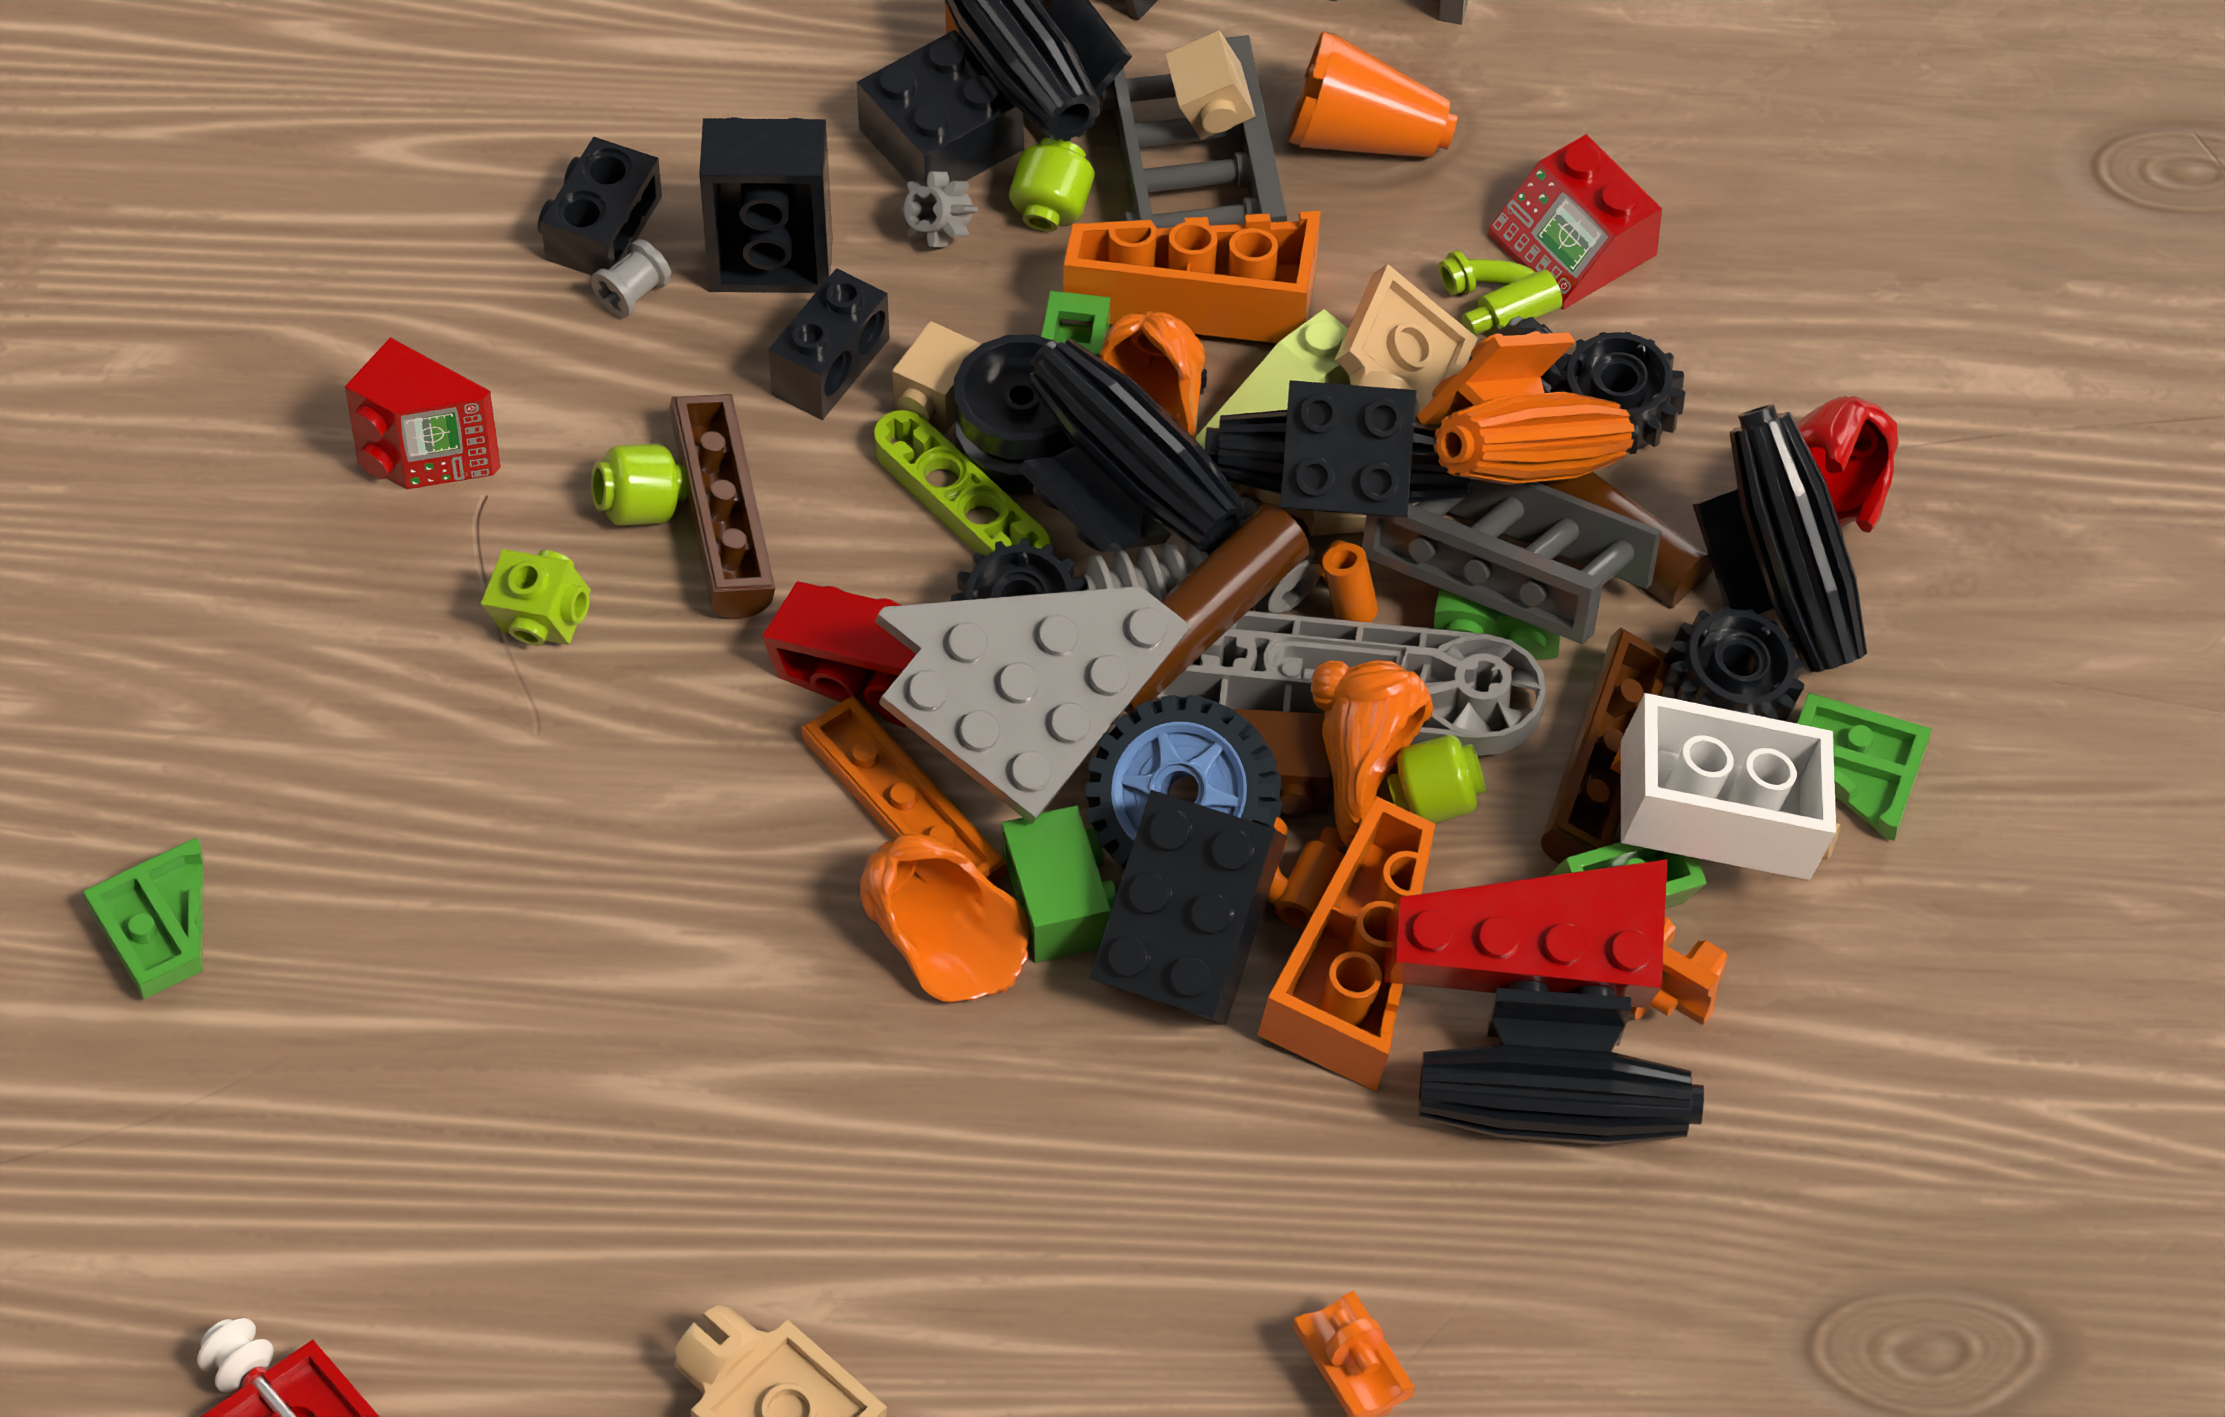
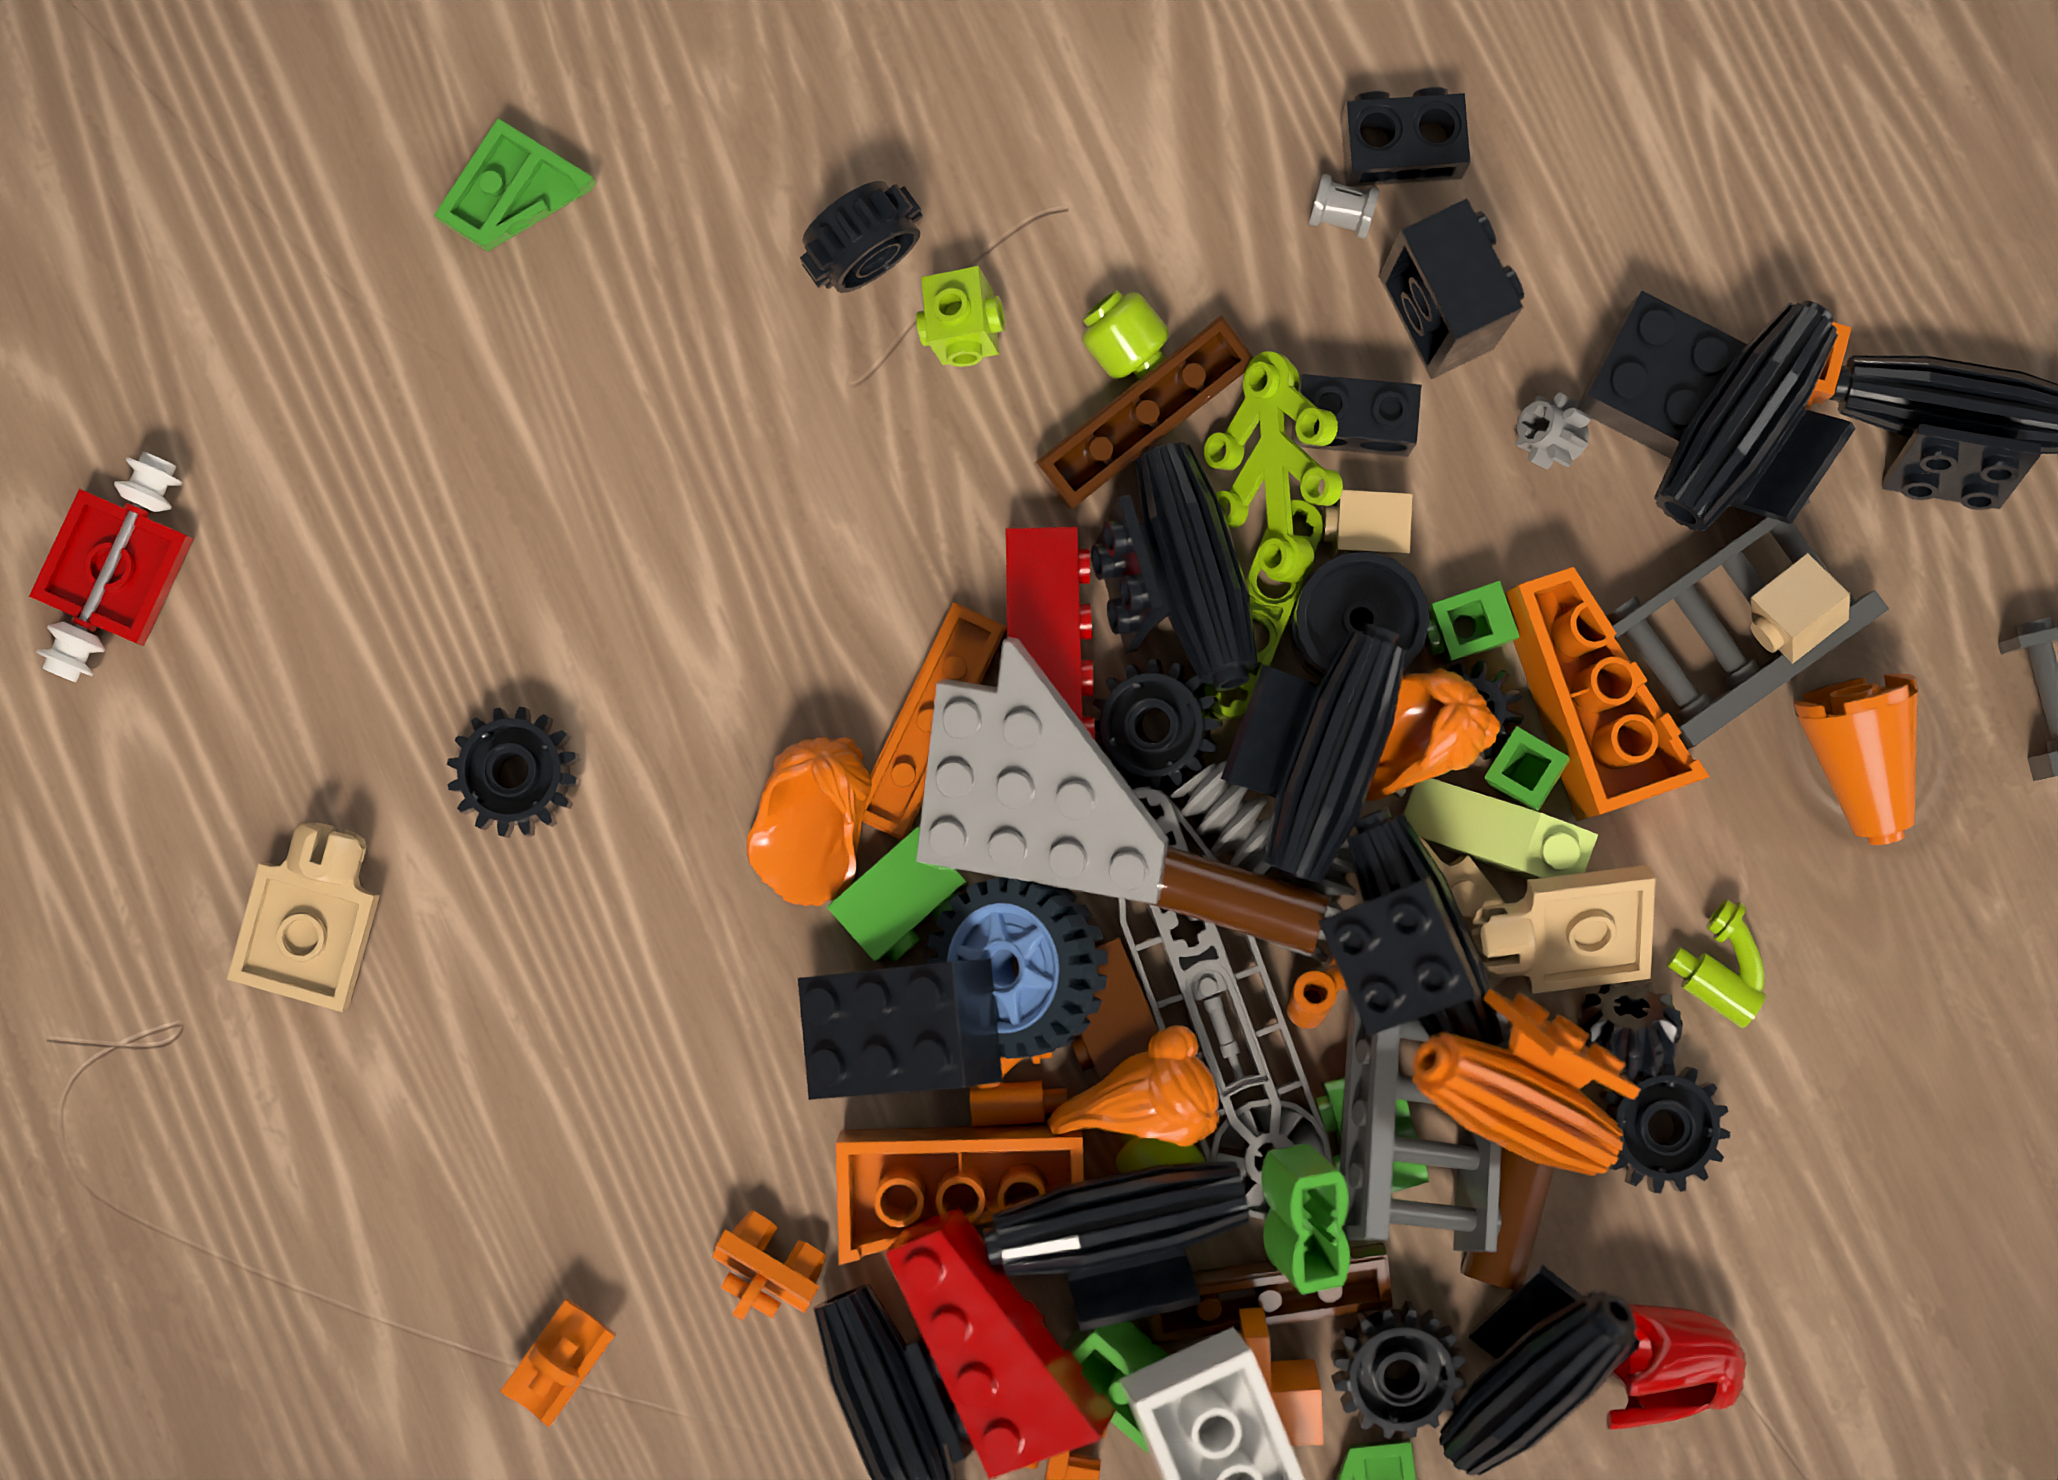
camera: 65 degrees right, 30 degrees up
(411, 630) = (861, 236): none -> black gear
(420, 420) = (1076, 113): red slope -> none
(737, 1186) = (481, 767): none -> black gear
(828, 408) = (1270, 389): none -> lime plant
(880, 523) = (1178, 568): none -> black plate
(1051, 184) = (1631, 517): lime head -> none
(1234, 340) = (1526, 770): none -> bright green brick
(1360, 1148) = (744, 1254): none -> orange hips
(1475, 808) = (1121, 1237): none -> black plate
(1549, 651) = (1305, 1218): none -> bright green brick
(1579, 220) = (1837, 1001): red slope -> none

